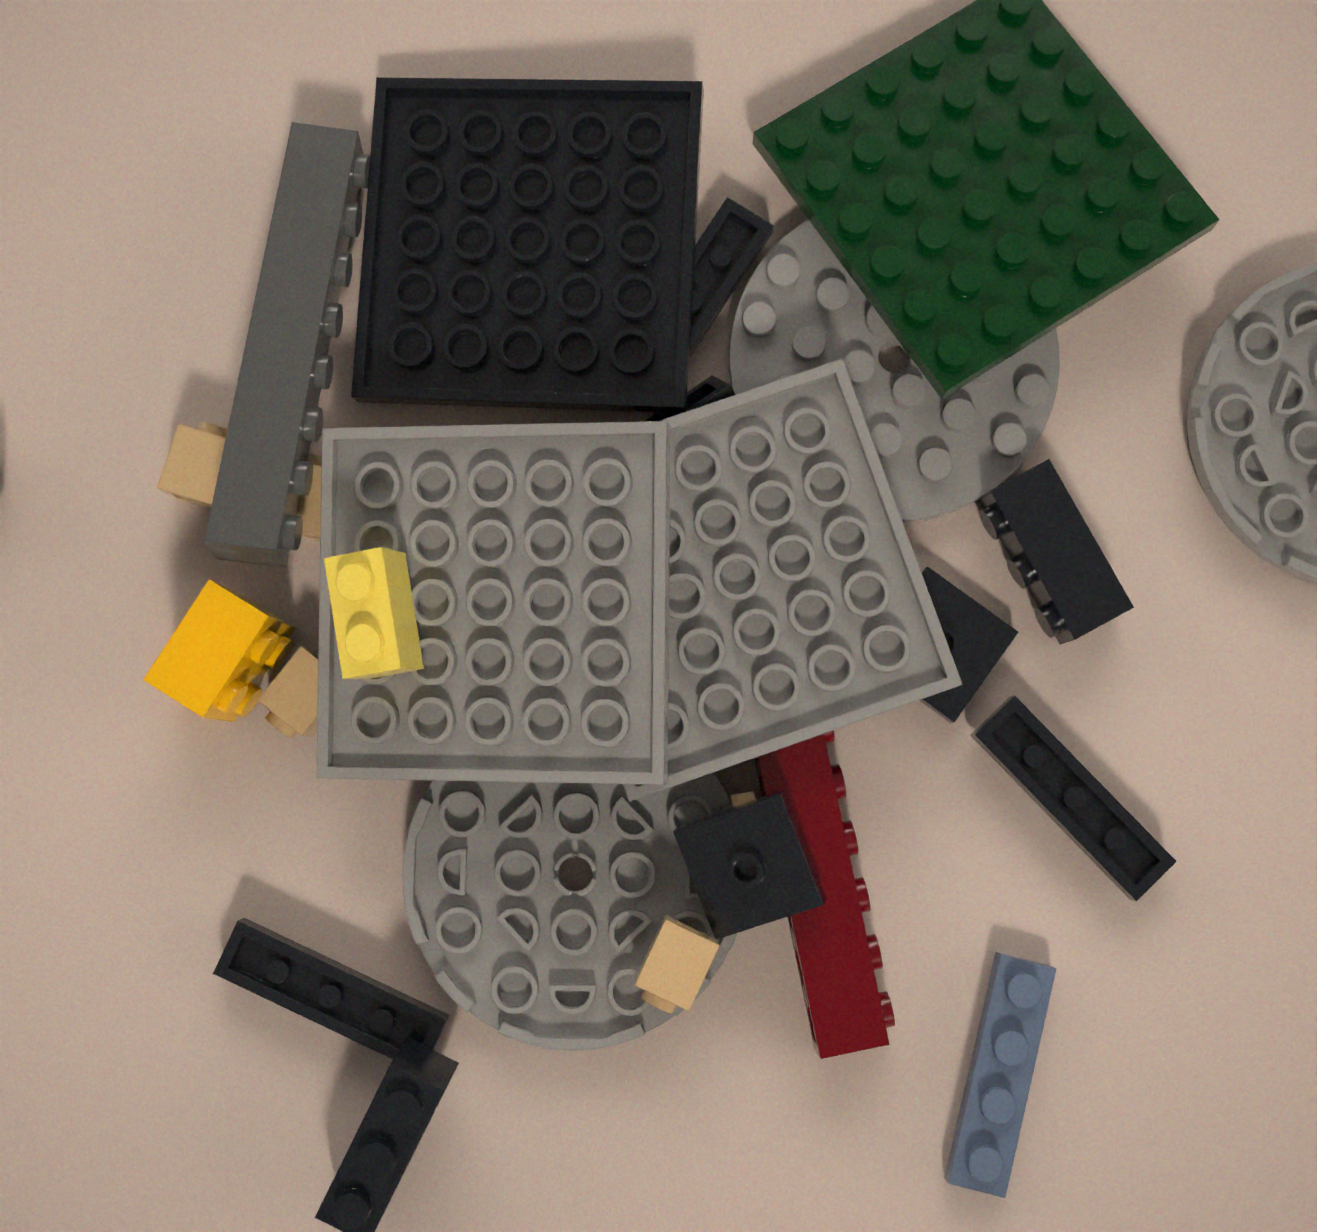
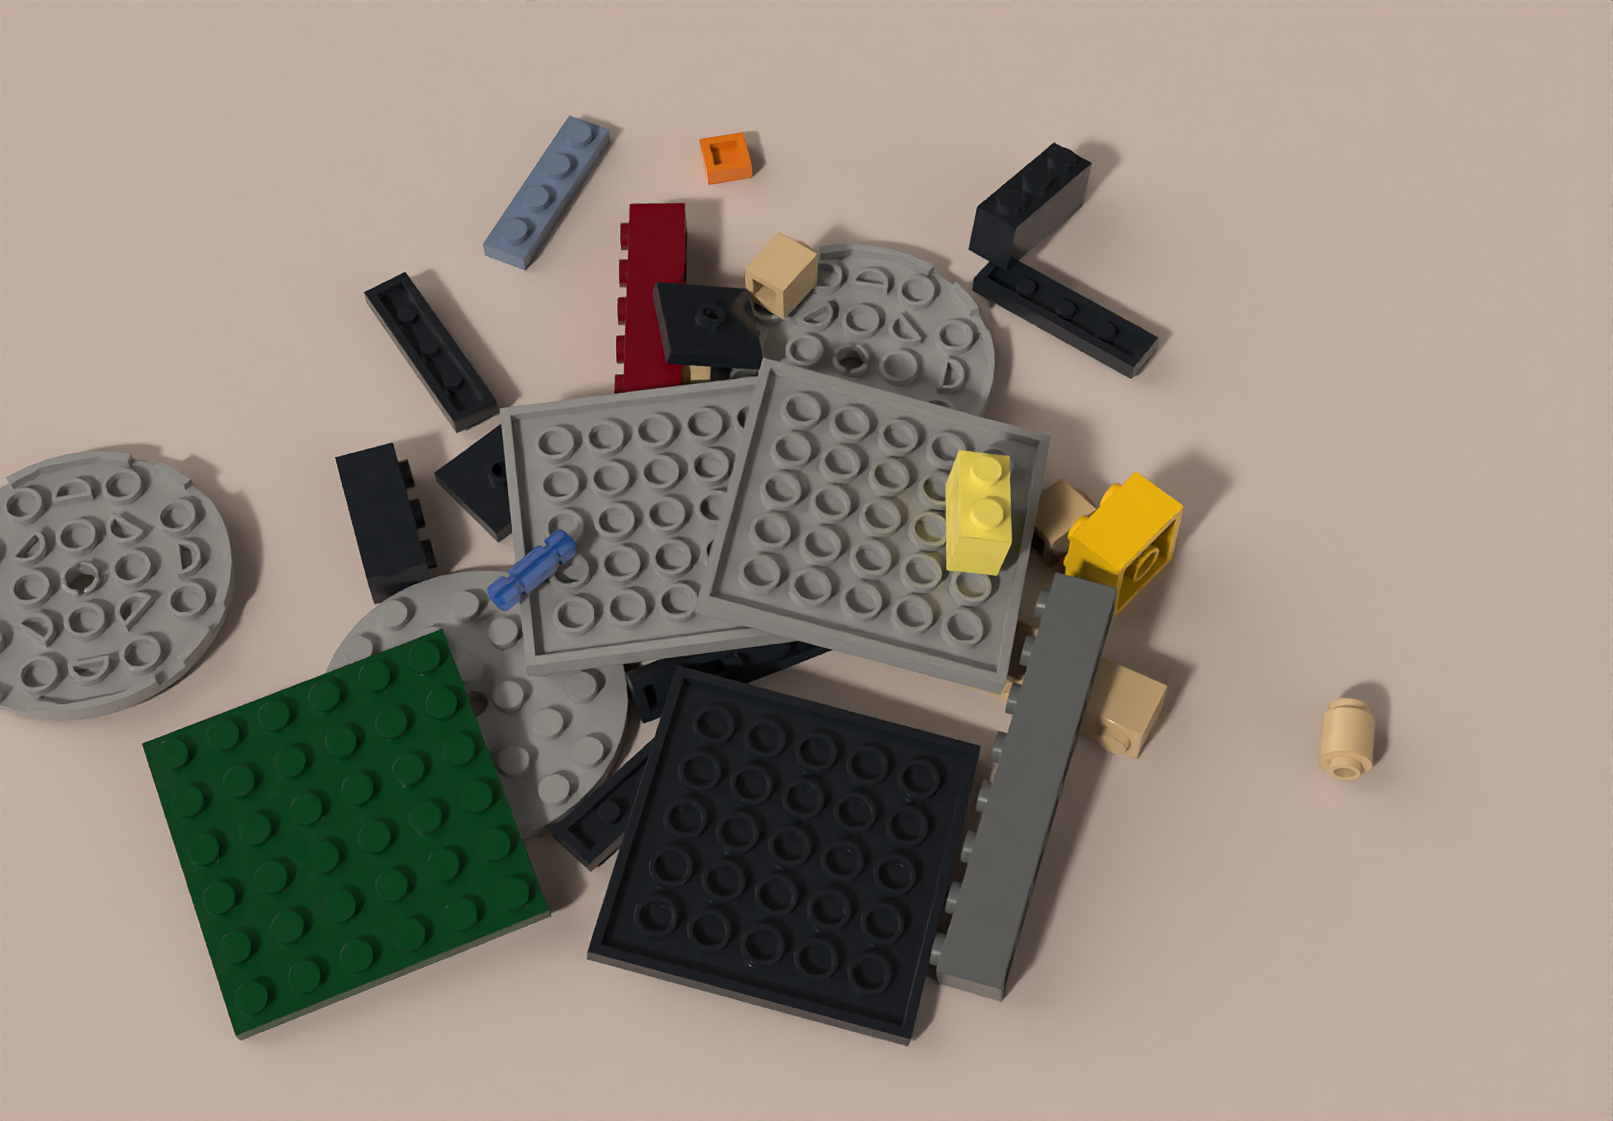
camera: 165 degrees left, 25 degrees down
(791, 1171) = (725, 158): none -> orange tile
(865, 464) = (532, 570): none -> blue axle

